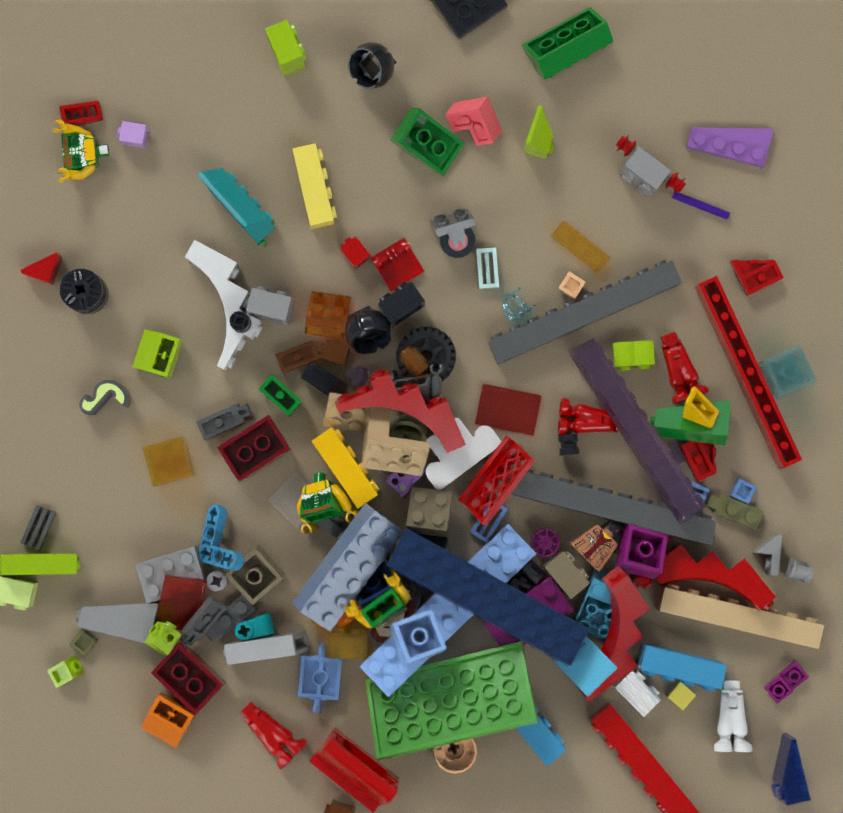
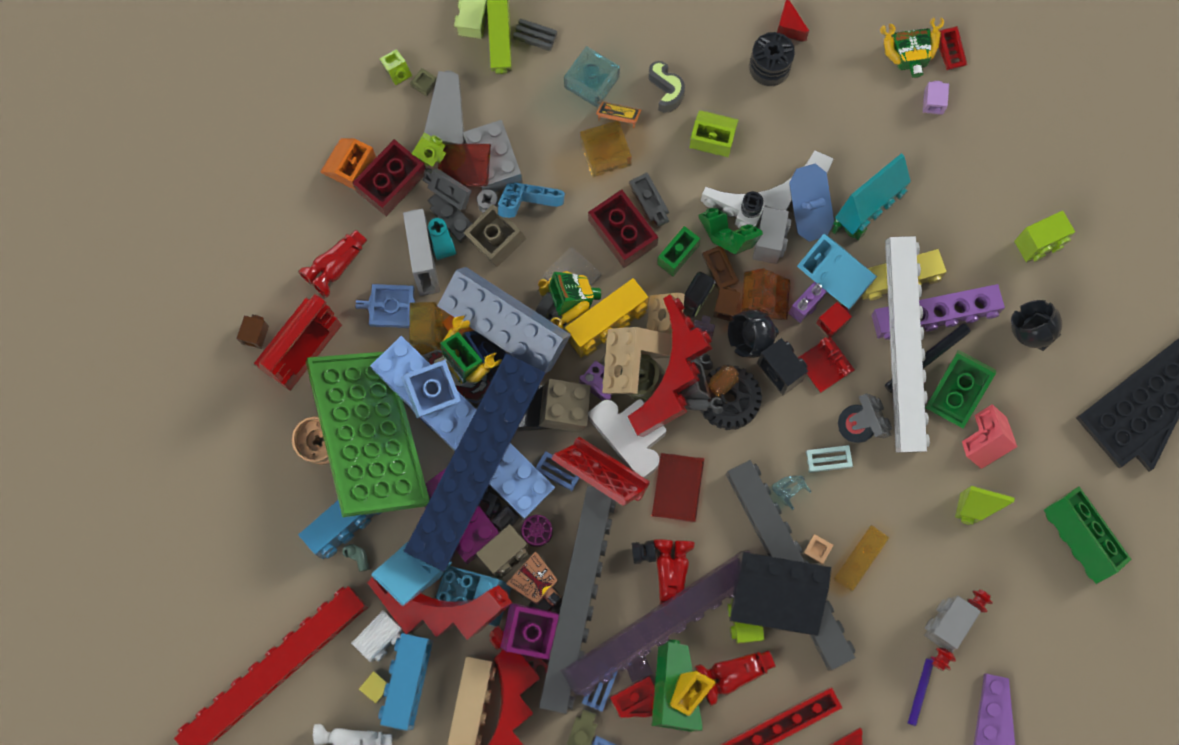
camera: 95 degrees right, 10 degrees down
(91, 472) = (591, 76): none -> clear light blue brick
(132, 447) = (618, 113): none -> piece
(239, 264) = (811, 202): none -> medium blue shield
(258, 356) = (737, 241): none -> green slope
(310, 246) = (837, 271): none -> medium azure slope
(337, 277) = (807, 302): none -> medium lavender piece
(340, 105) = (988, 296): none -> medium lavender brick
(385, 187) = (905, 344): none -> white brick
(395, 168) = (940, 348): none -> black axle
(559, 711) = (357, 554): none -> sand green arm
(615, 323) = (780, 593): none -> black slope

